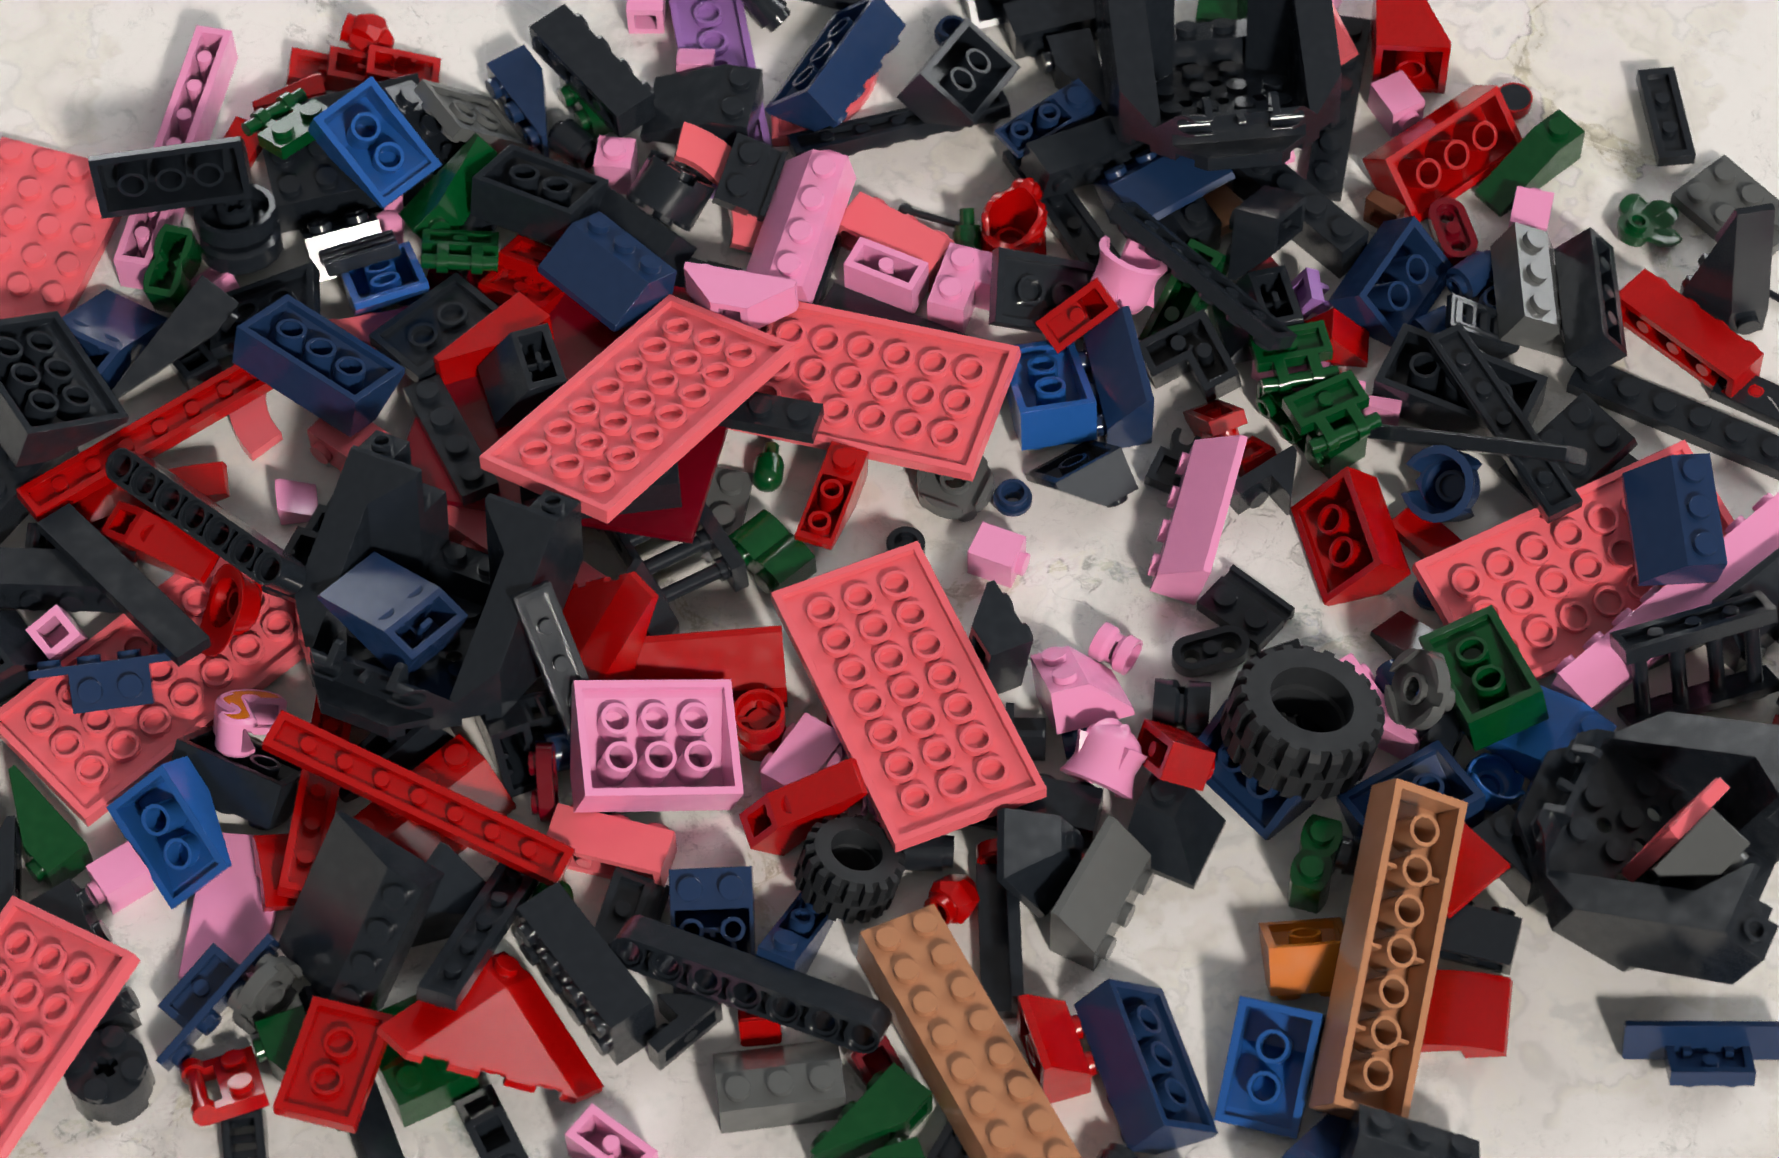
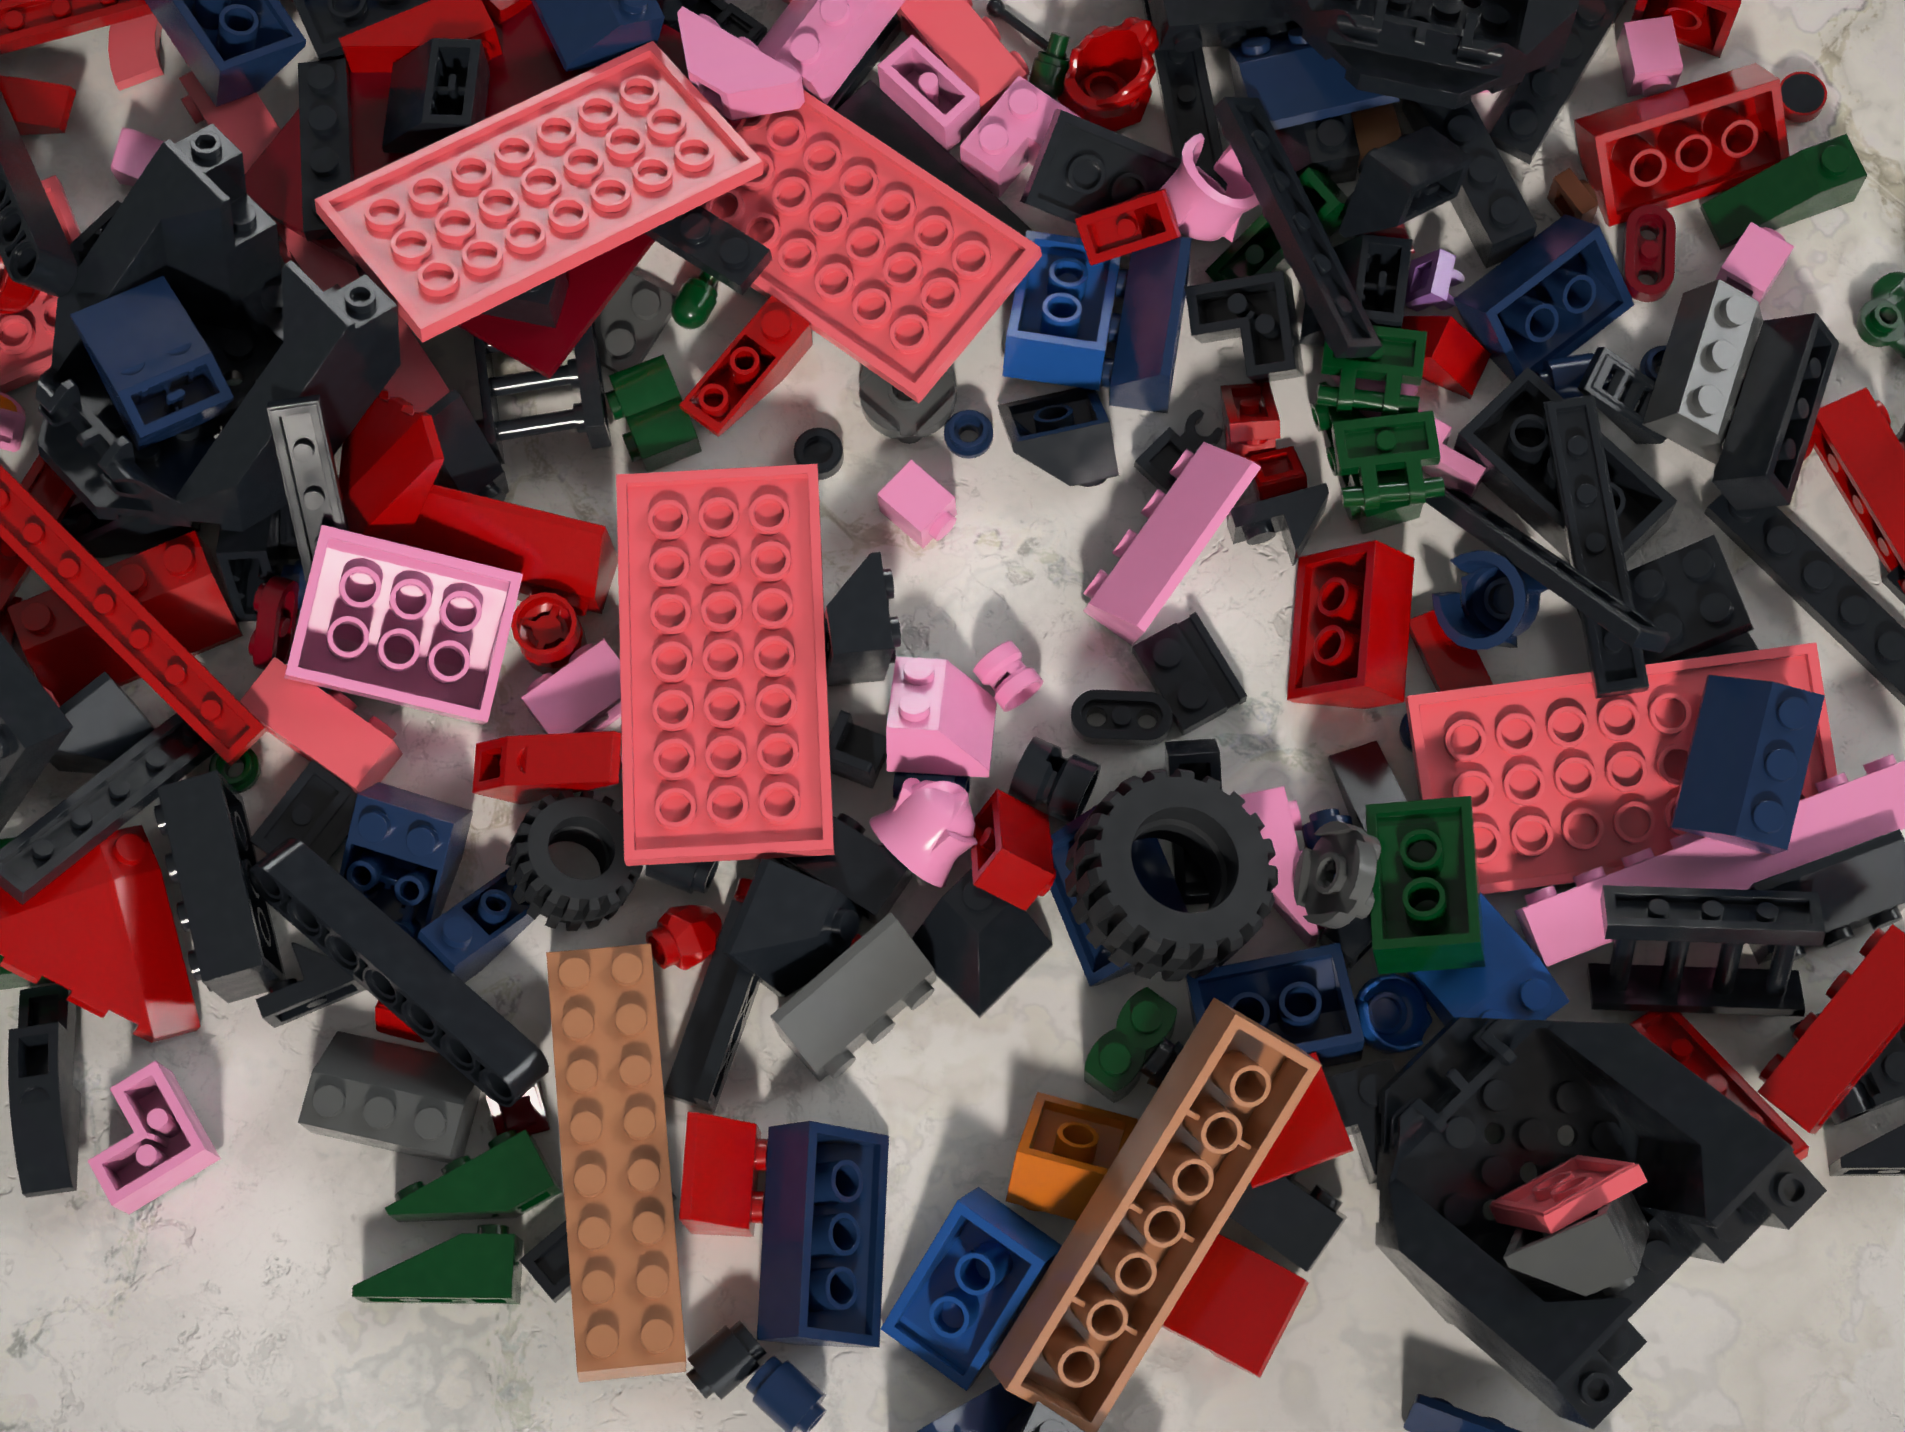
camera: 25 degrees right, 15 degrees up
(1471, 275) = (1645, 321): dark blue brick -> none

